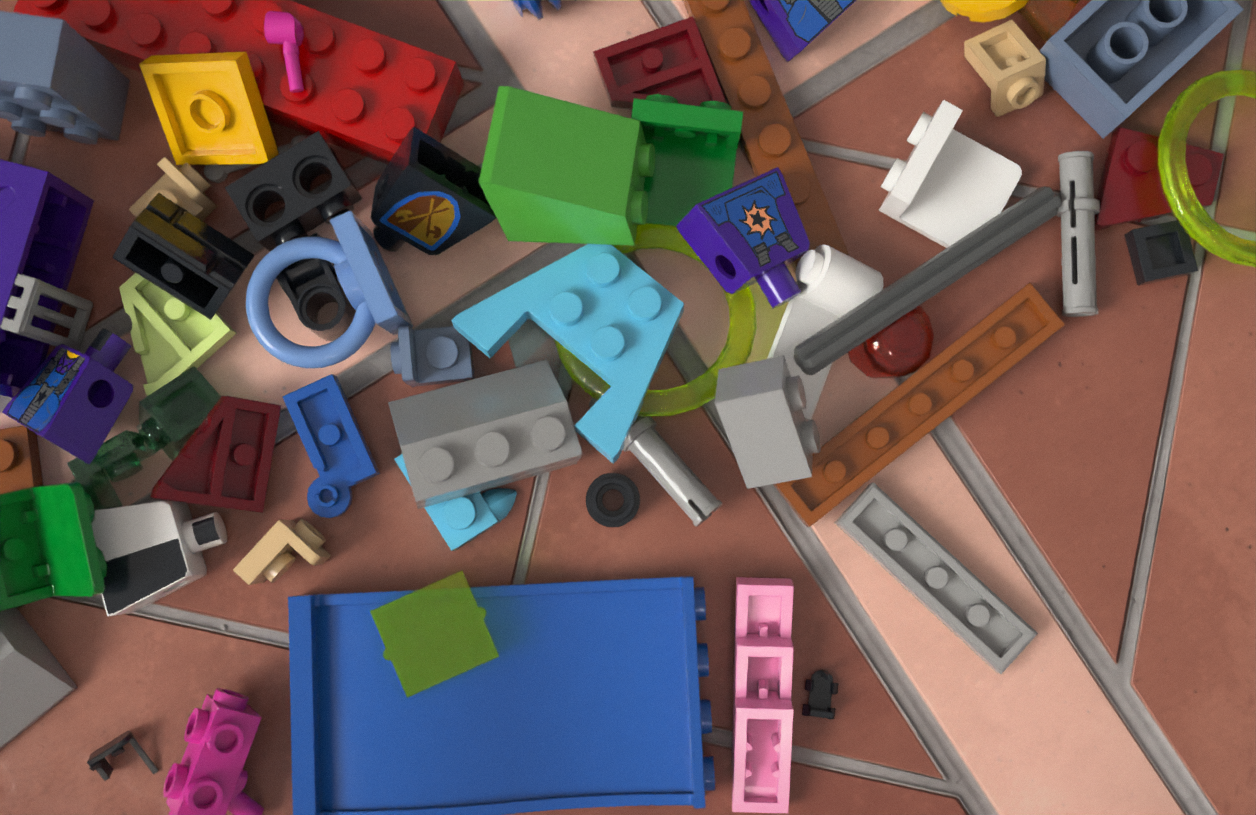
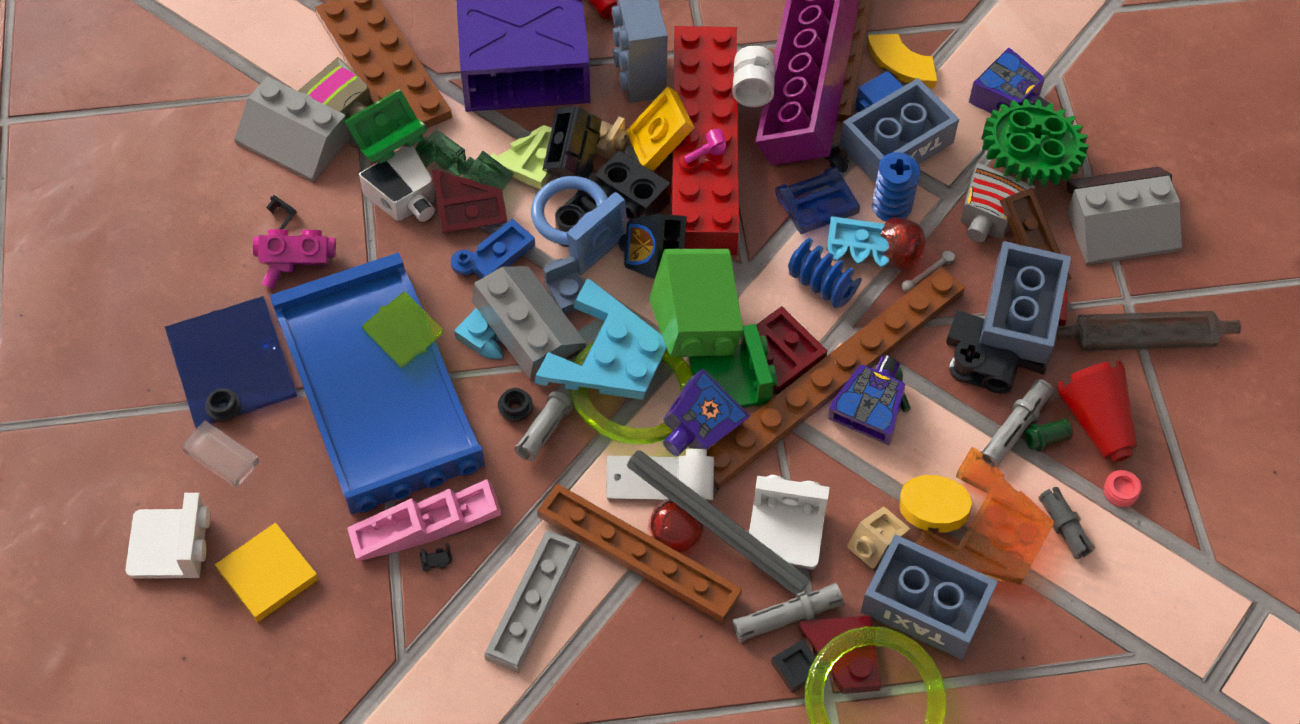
camera: 65 degrees right, 25 degrees down
(27, 308) = (514, 77): light grey tile -> none
(75, 396) = (462, 123): dark purple torso -> none
(272, 555) = (424, 245): tan bracket -> none
(766, 421) = (589, 455): light grey brick -> none

